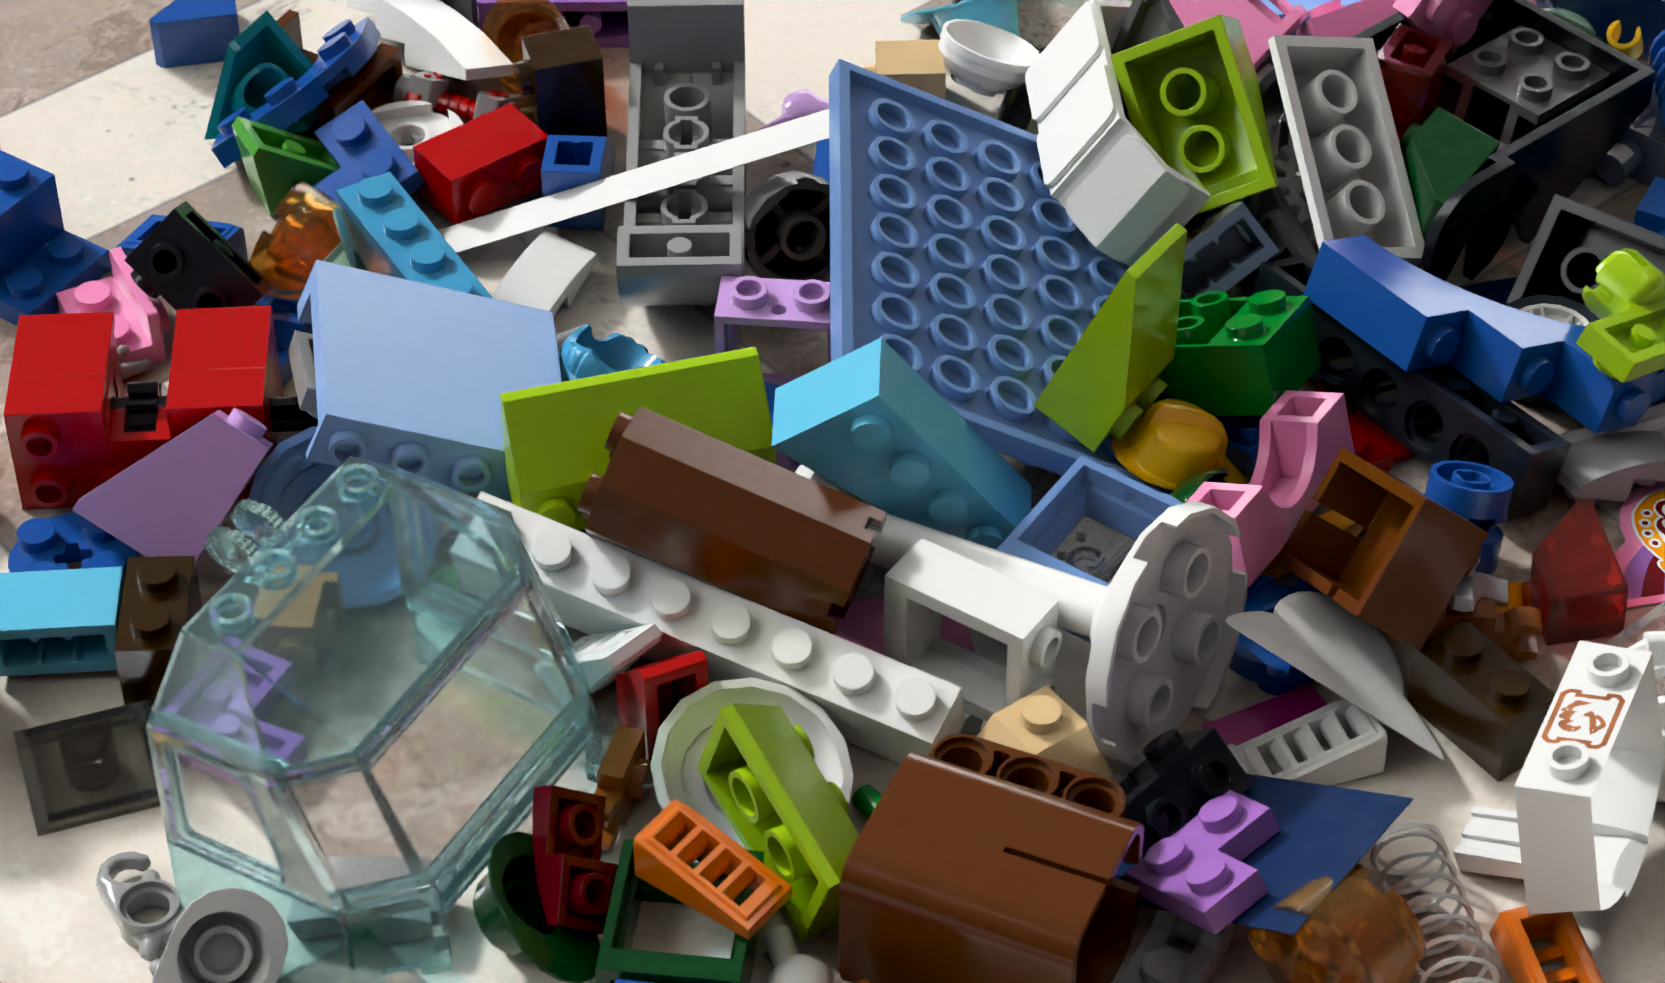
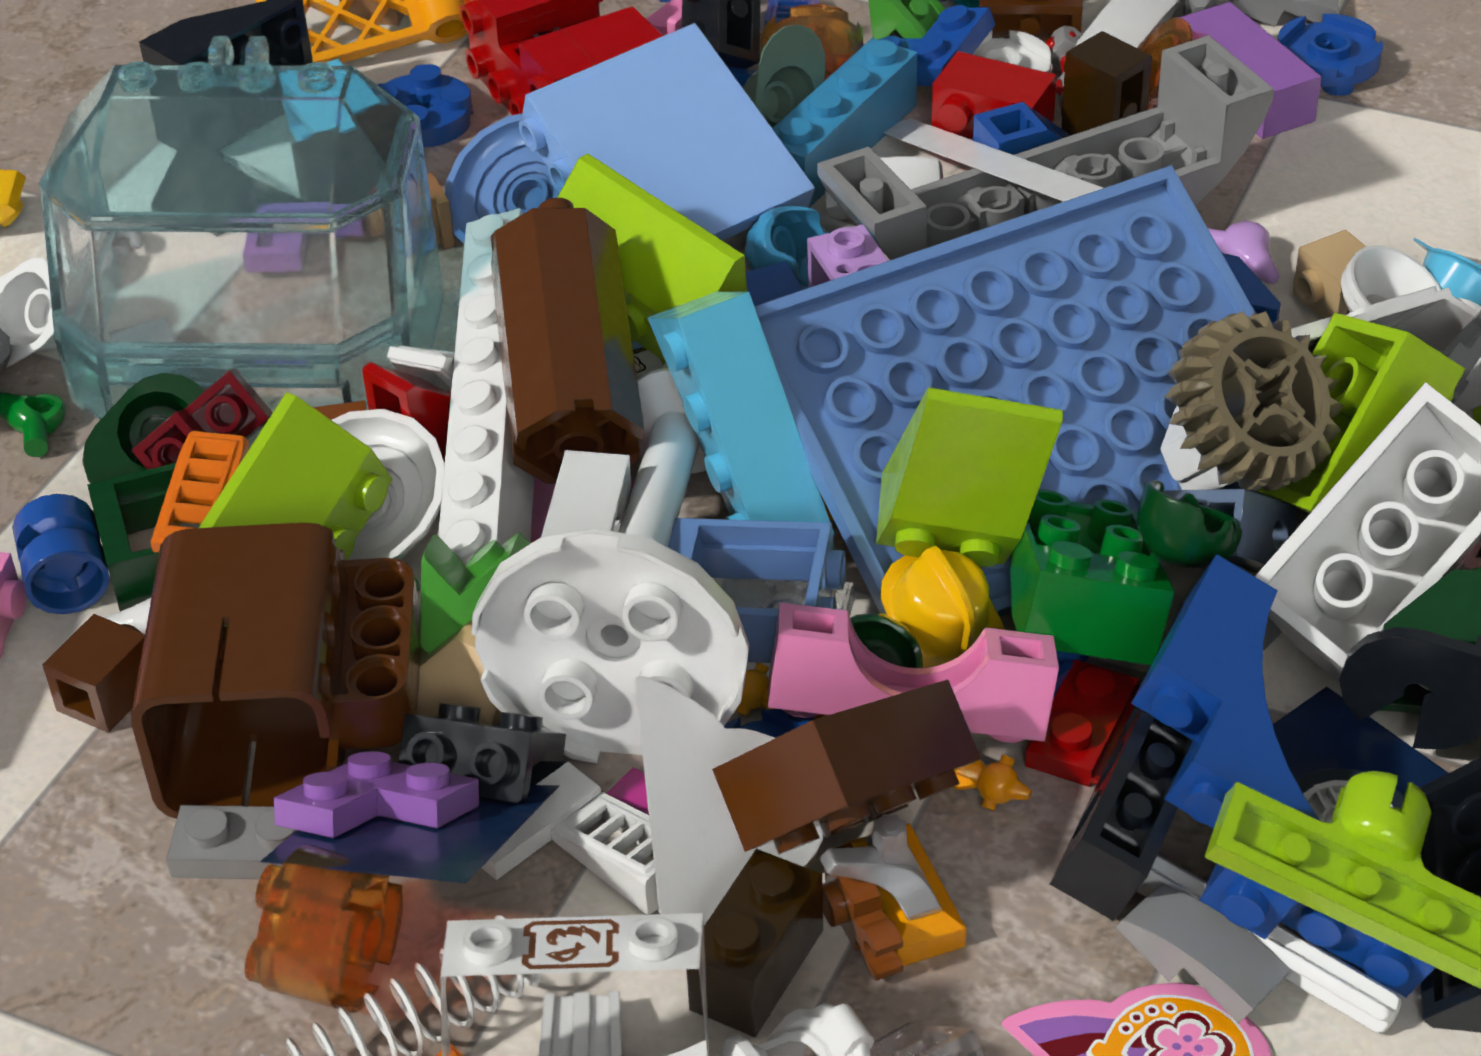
camera: 65 degrees right, 0 degrees up
(182, 488) = (464, 94): lavender slope -> none
(989, 697) = (453, 588): none -> bright green slope
(1184, 141) = (1251, 386): none -> dark tan gear
(1253, 256) = (1183, 530): none -> dark green hair
(1477, 495) = (994, 837): blue wheel -> none
(1577, 580) = (996, 963): clear red slope -> none

